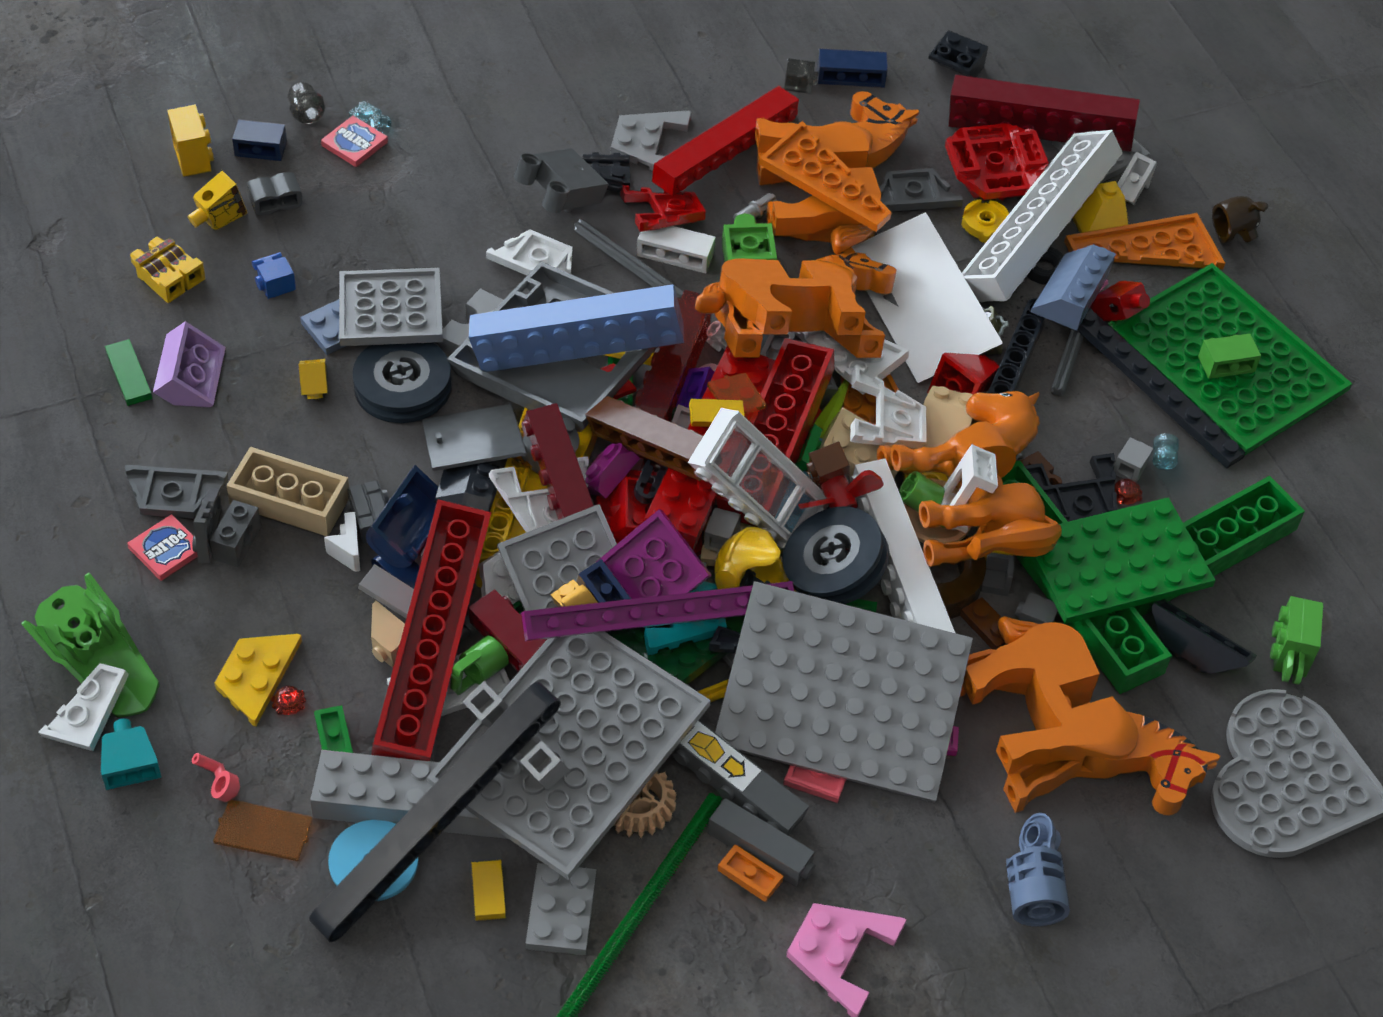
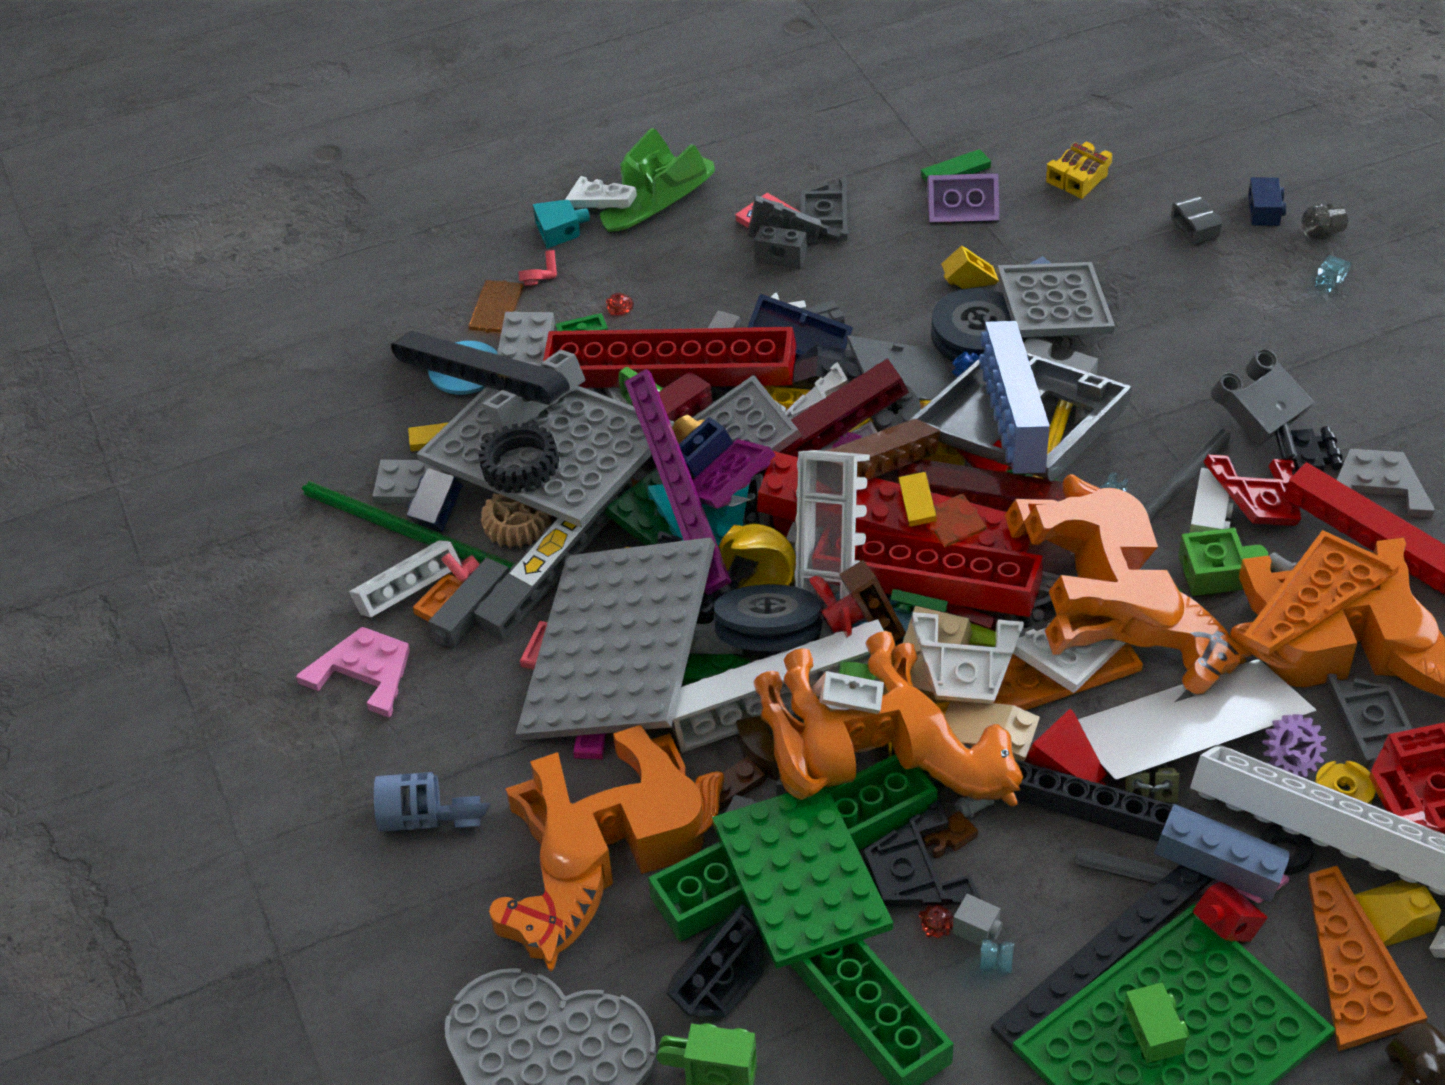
camera: 95 degrees right, 5 degrees down
(190, 140) = (1238, 151): yellow brick -> none
(217, 203) = (1165, 182): yellow torso -> none
(256, 671) = (644, 282): yellow wing -> none
(274, 275) = (1088, 232): blue brick -> none
(289, 491) = (827, 265): tan brick -> none
(354, 141) = (1292, 266): tile -> none
(458, 393) = (963, 362): none -> blue gear
(529, 250) = (1163, 407): white wing -> none
(613, 875) = (434, 499): none -> brick
(618, 724) = (525, 476): none -> black tyre
(702, 850) = (461, 572): none -> coral plate
(761, 931) = (402, 579): none -> white brick
(955, 235) = (1286, 736): none -> lavender gear

